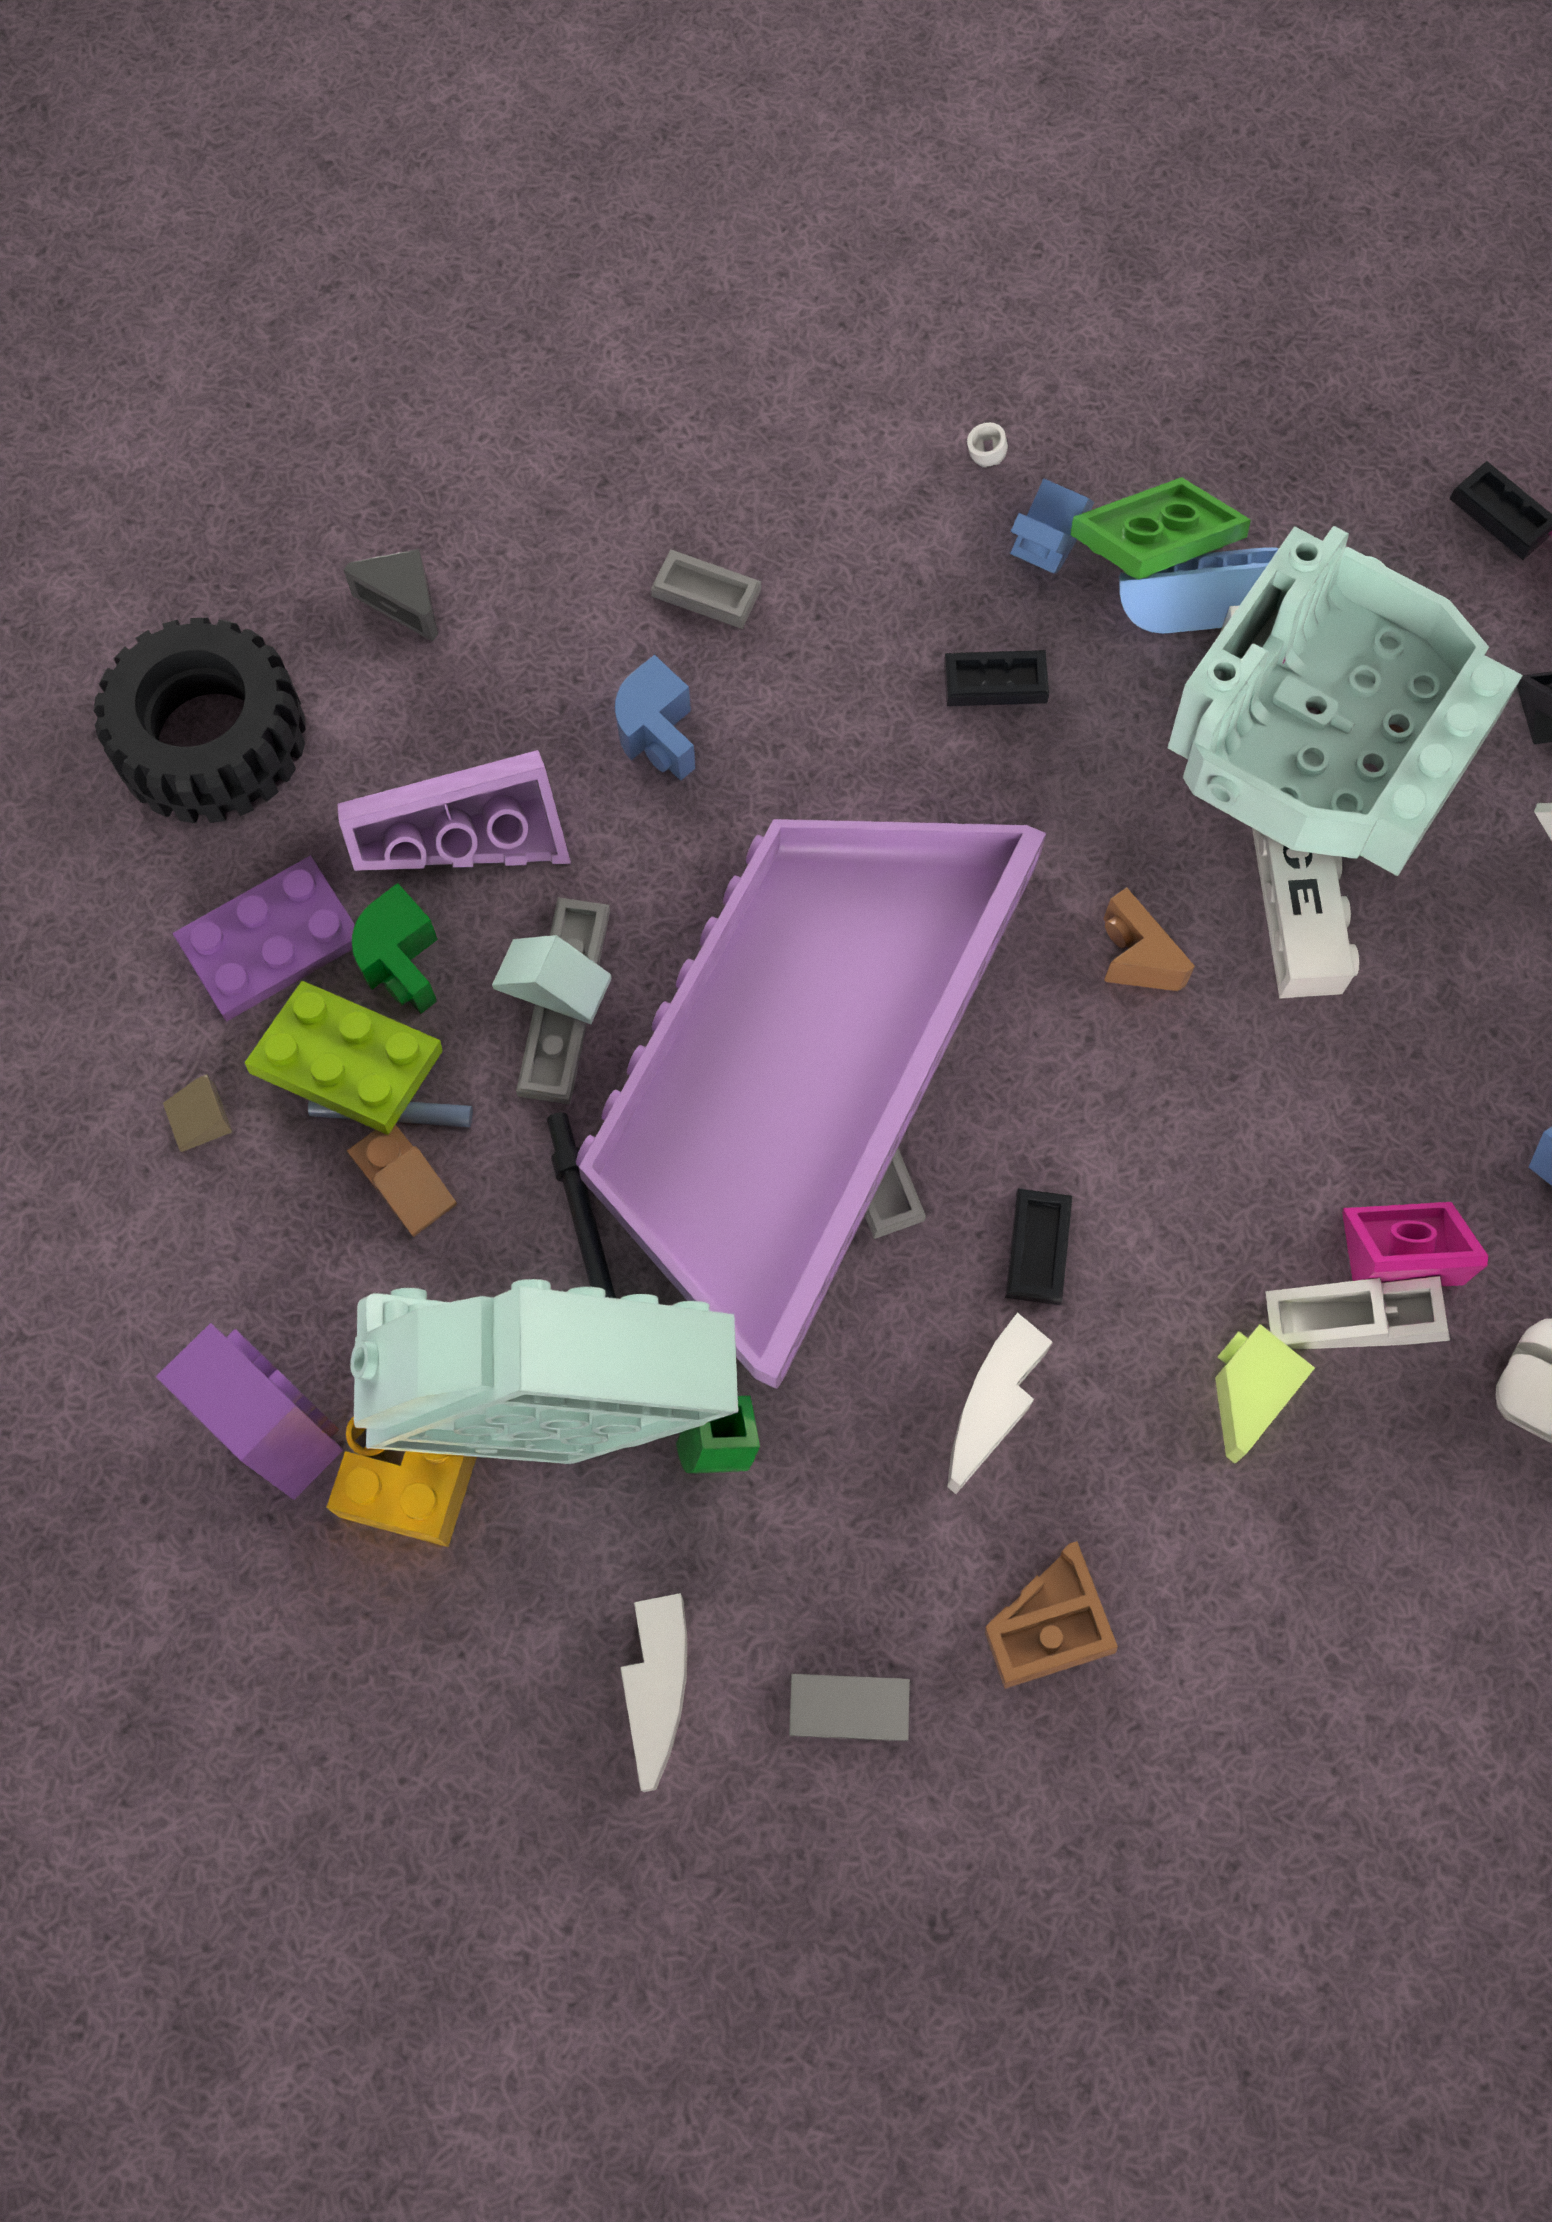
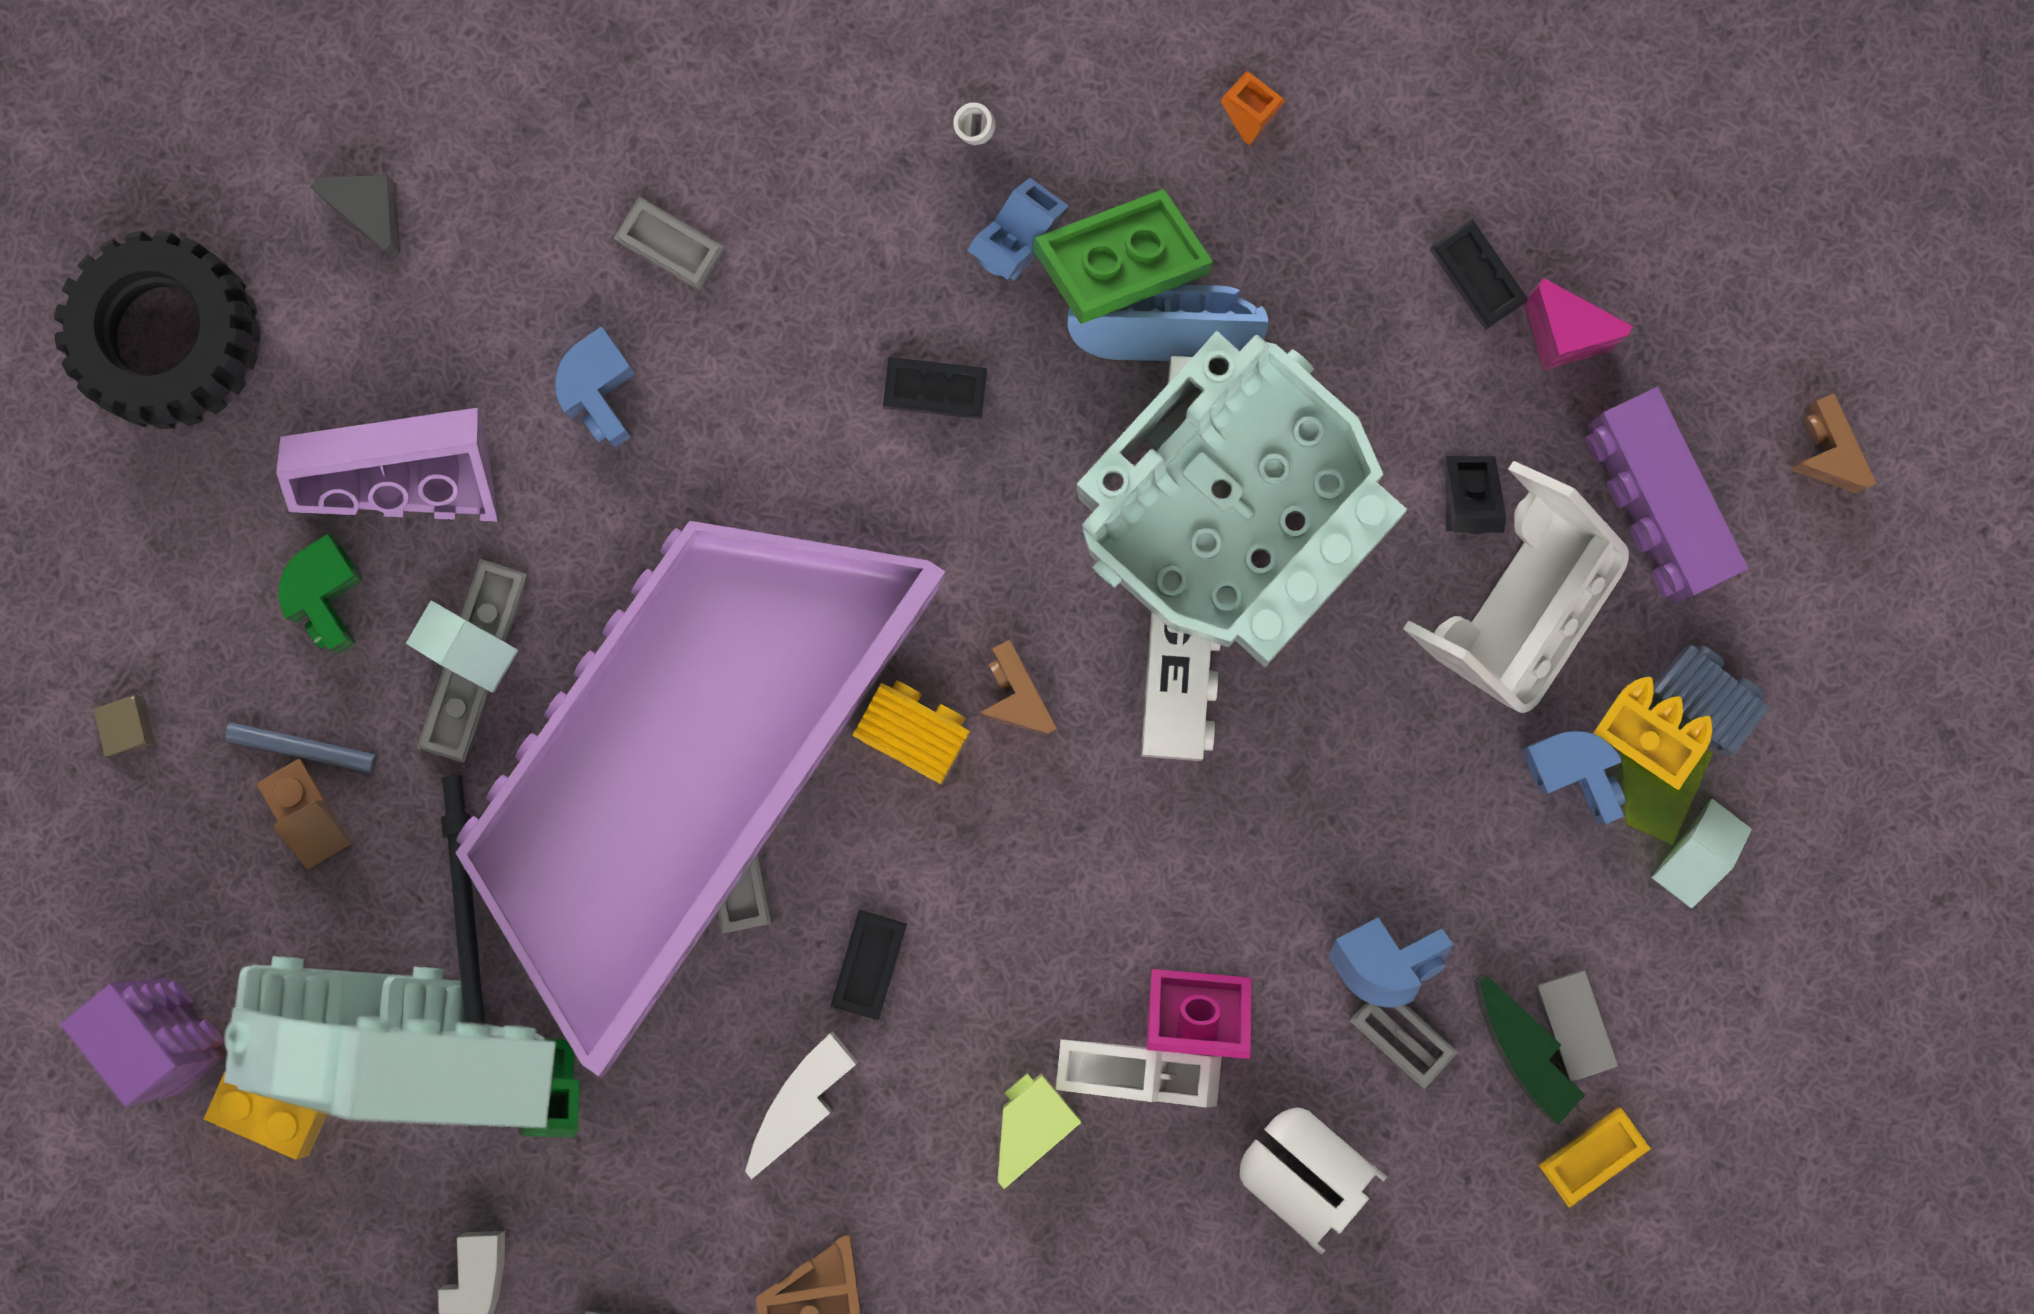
camera: 10 degrees right, 15 degrees up
(267, 938) = (203, 557): medium lavender plate -> none
(344, 1057) = (262, 692): lime plate -> none
(1040, 1000) = (913, 732): none -> yellow brick
(1247, 402) = (1251, 106): none -> orange slope

